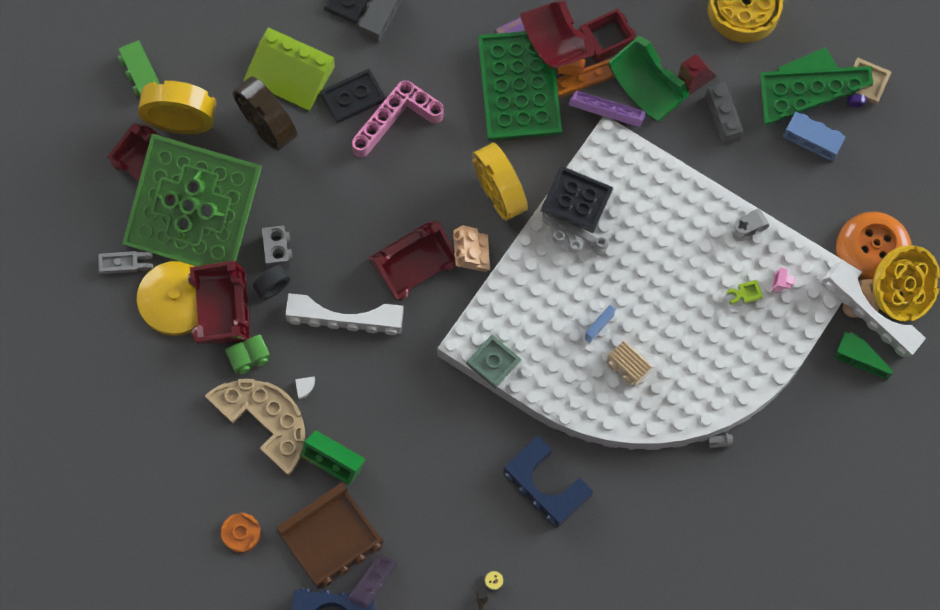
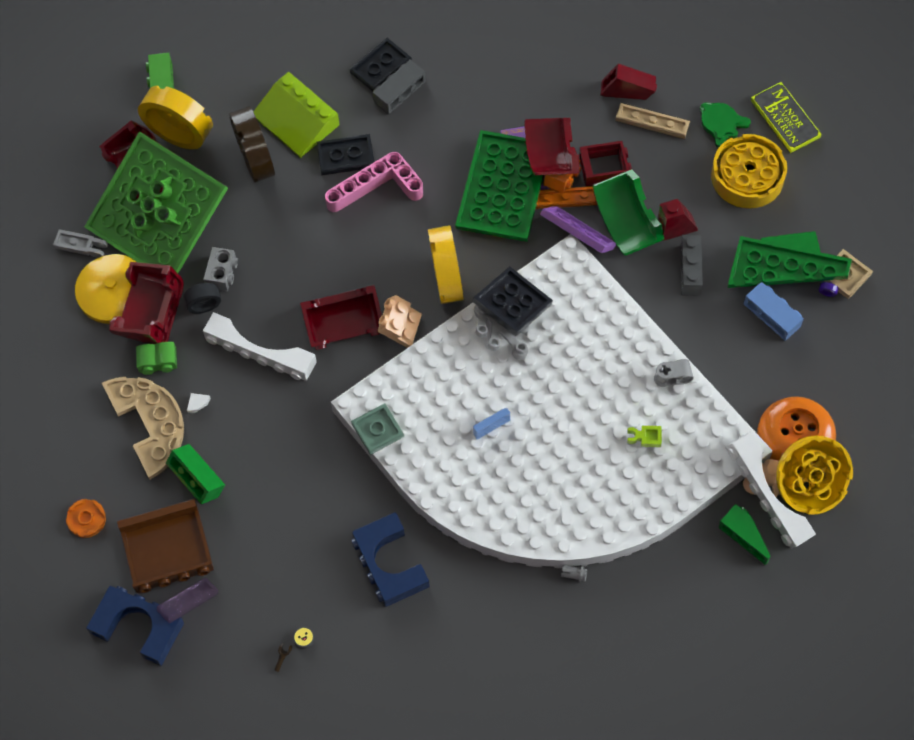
camera: 25 degrees right, 5 degrees down
(628, 364) = (505, 469): tan brick -> none
(782, 280) = (686, 435): bright pink tile -> none

